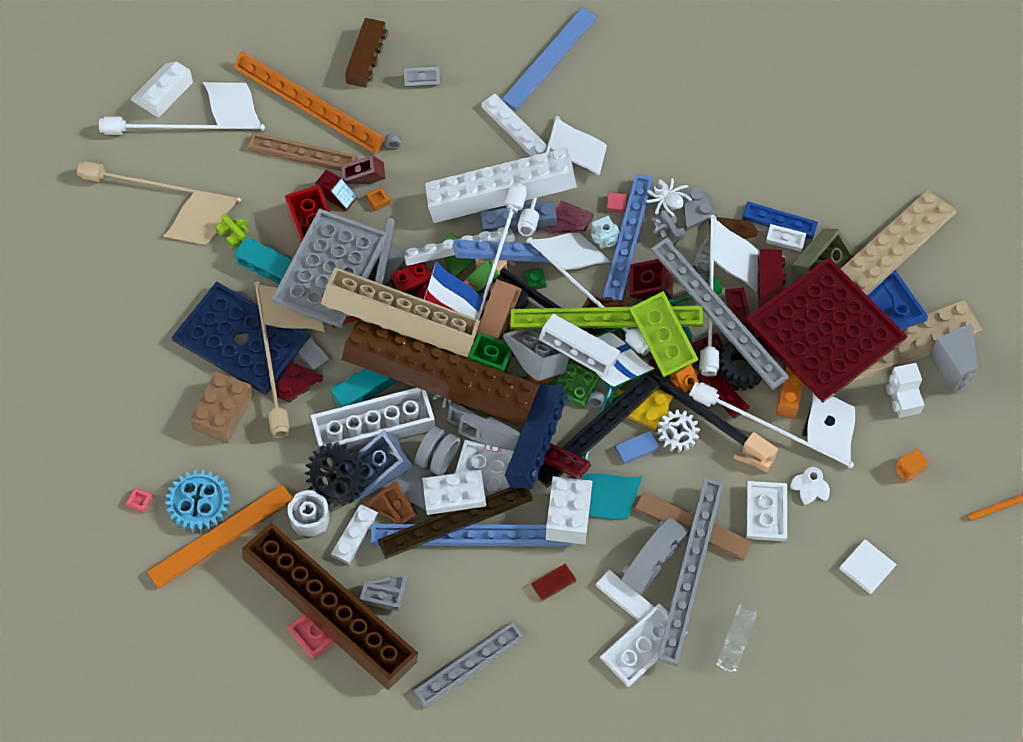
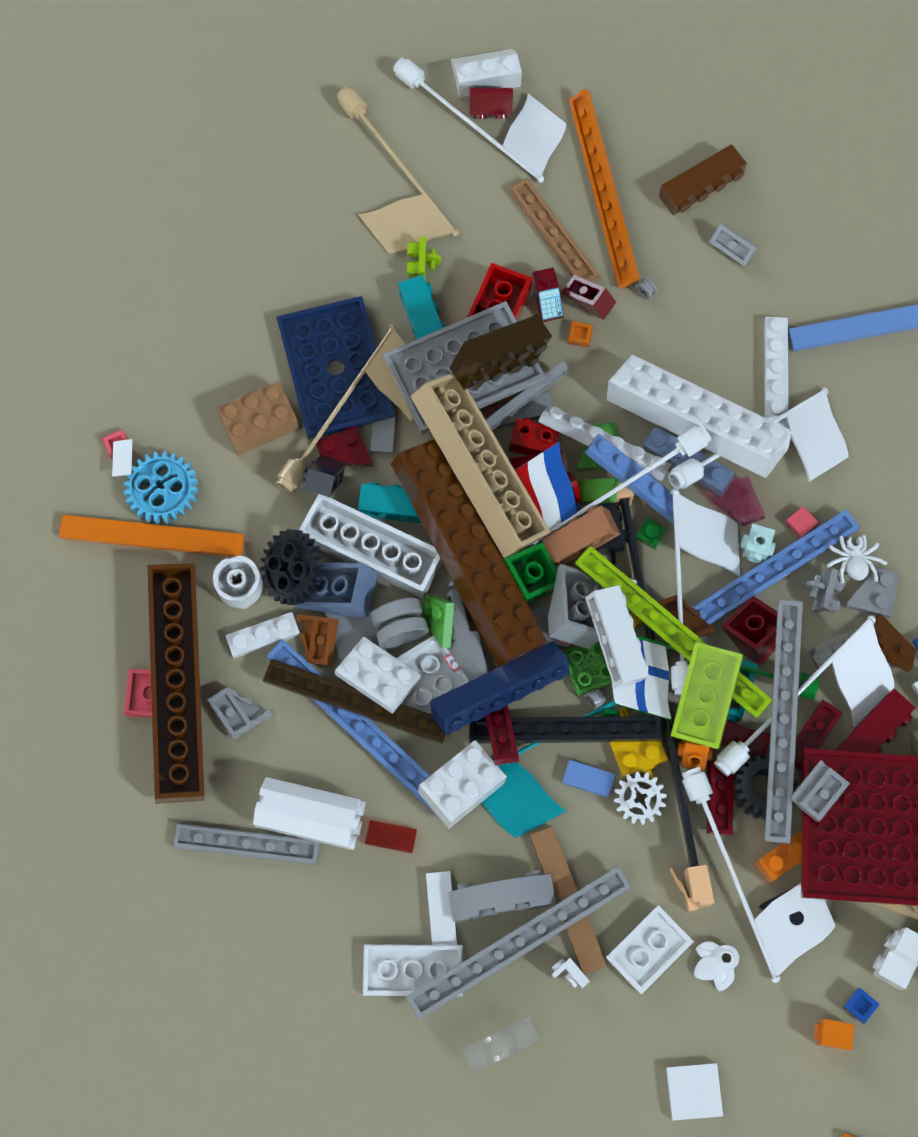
camera: 45 degrees right, 10 degrees up
(153, 503) = (122, 457): none -> white sticker
(186, 102) = (490, 102): none -> dark red slope
(302, 404) = (324, 475): none -> black brick
(353, 234) = (500, 352): none -> dark brown brick
(461, 426) = (439, 618): none -> bright green wing
(493, 608) = (309, 813): none -> white brick
(738, 561) = (574, 976): none -> white bracket
(777, 332) = (819, 791): none -> light grey plate
(909, 437) = (861, 1005): none -> blue plate

